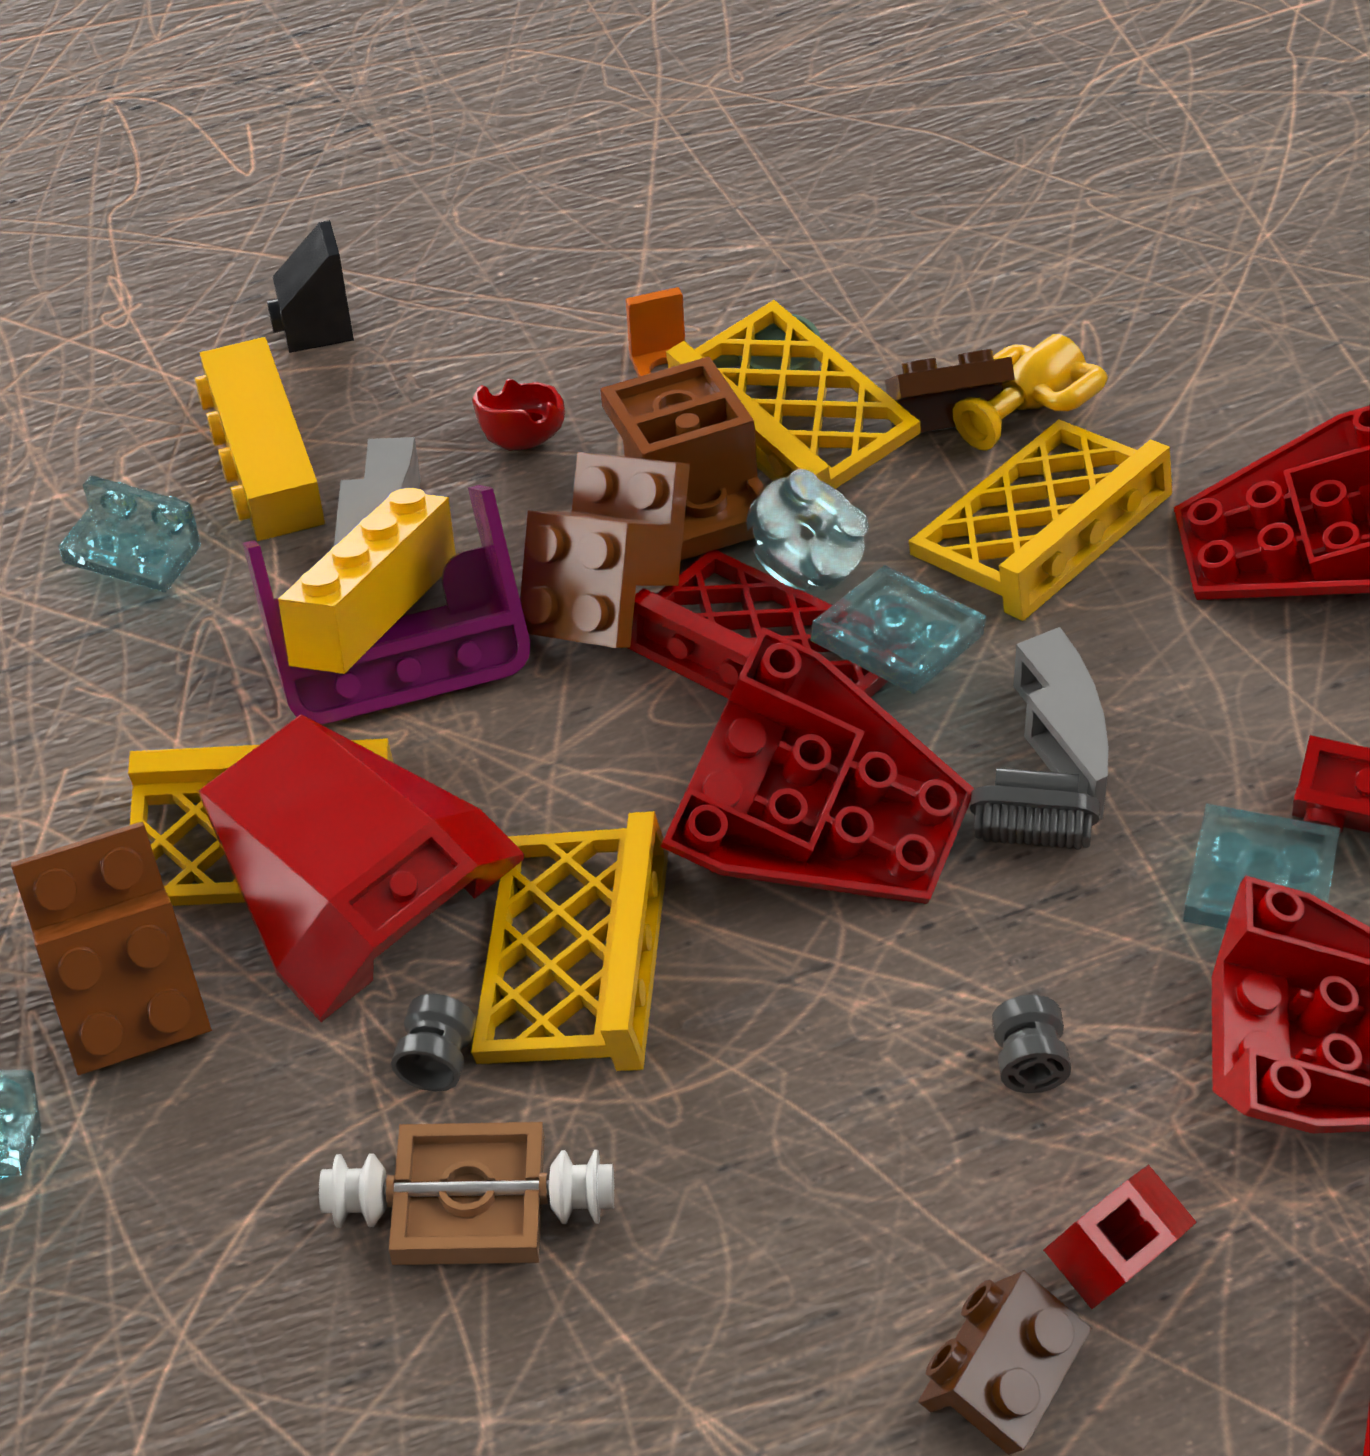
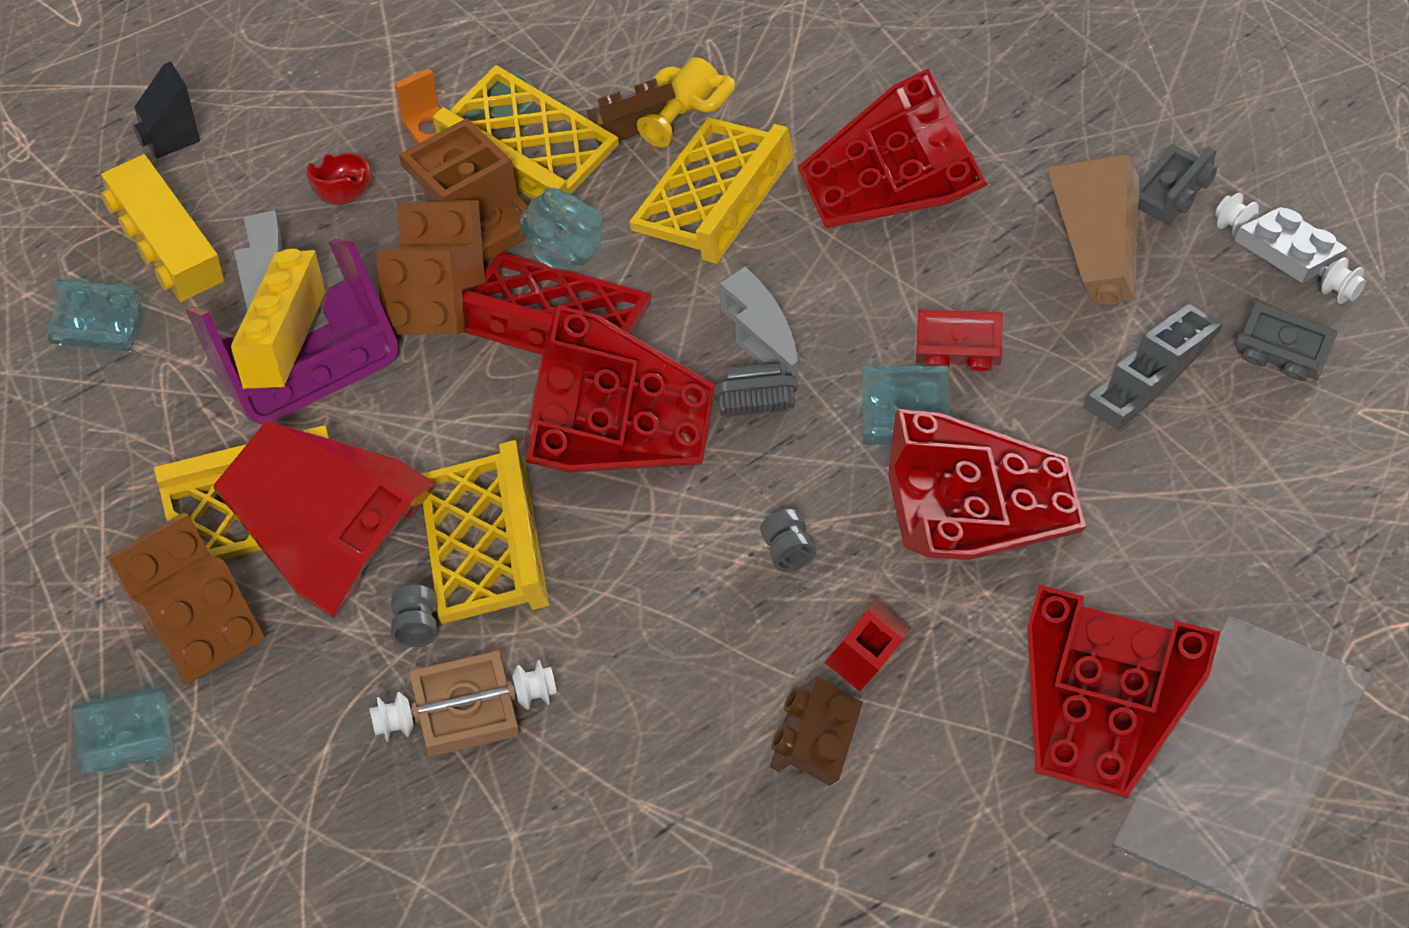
camera: 15 degrees left, 5 degrees up
(898, 628) = (639, 286): clear light blue plate -> none

